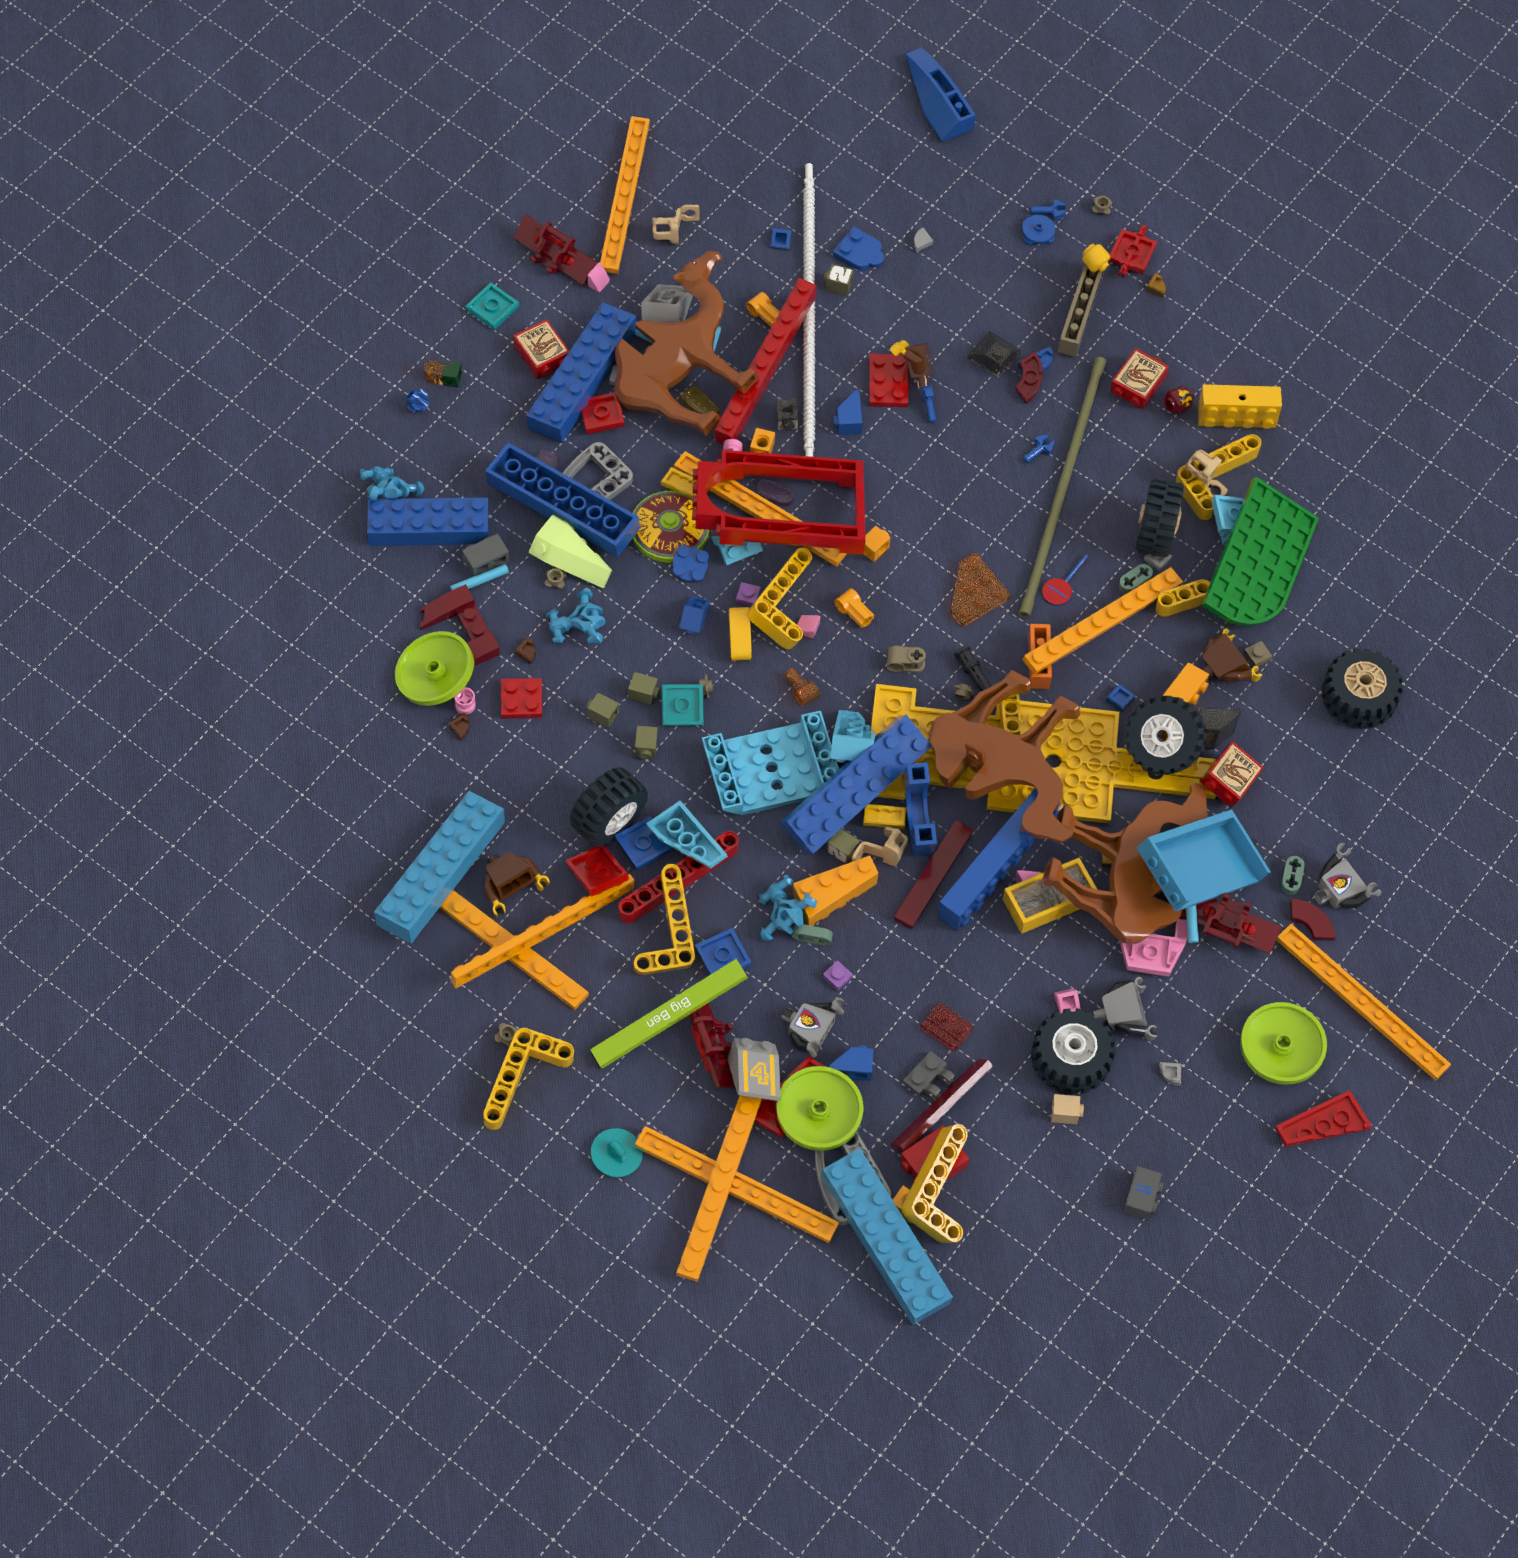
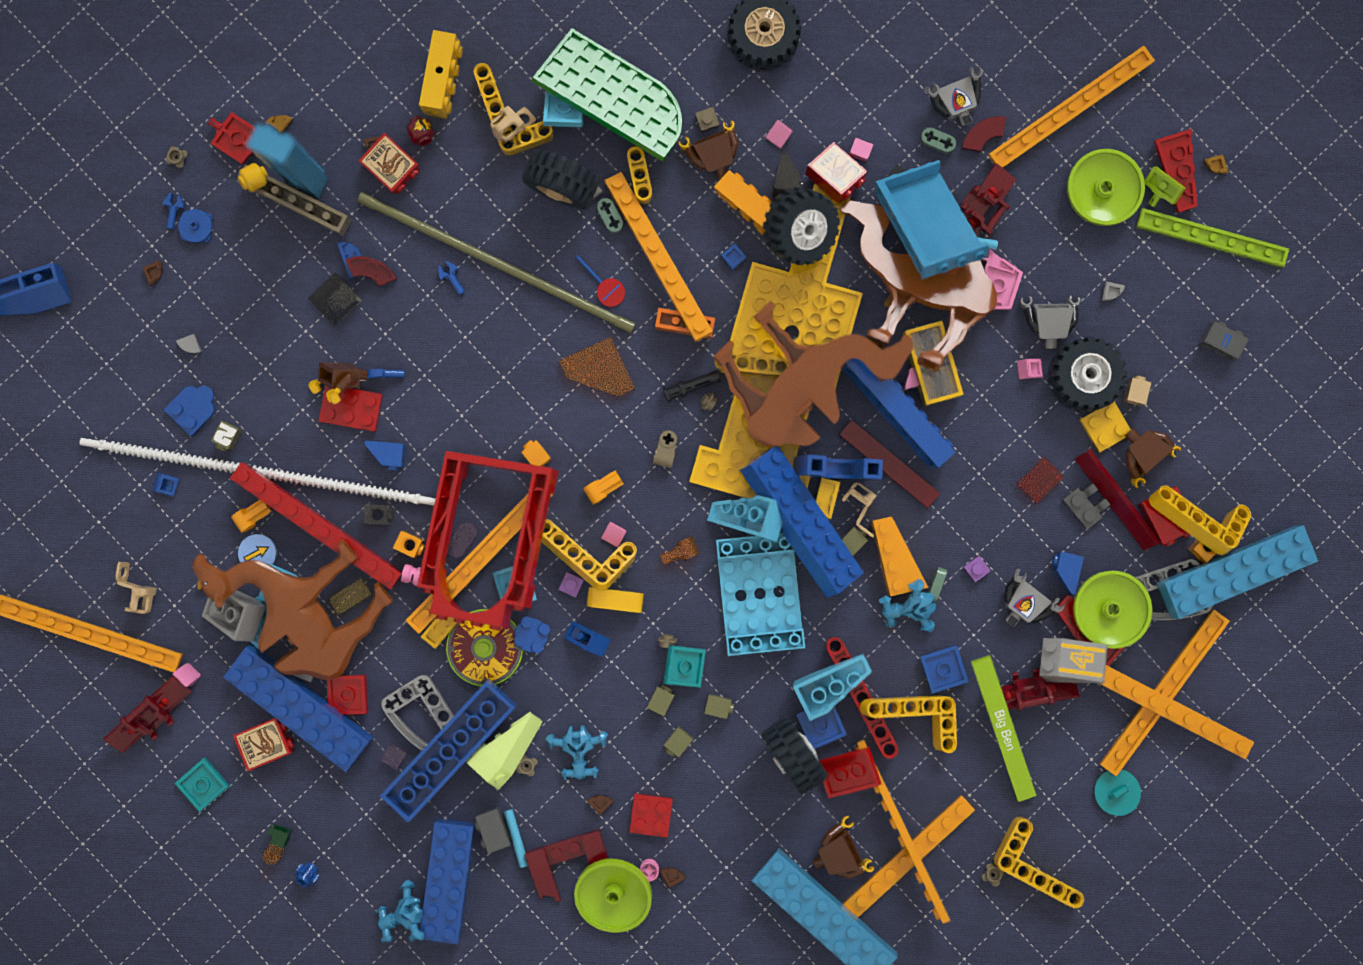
camera: 75 degrees left, 25 degrees up
(733, 322) = (258, 548): none -> light blue tile
(985, 202) = (153, 272): none -> reddish brown tile
(1001, 1123) = (1147, 452): none -> reddish brown torso
(1020, 1086) = (1105, 426): none -> yellow plate
(1117, 269) = (287, 159): none -> dark azure brick
(1256, 1171) = (1212, 238): none -> lime tile
(1259, 722) = (779, 134): none -> bright pink slope
(1263, 801) = (860, 150): none -> bright pink slope
(1299, 1103) = (1163, 187): none -> lime plate
(1340, 1163) = (1216, 164): none -> pearl gold tile

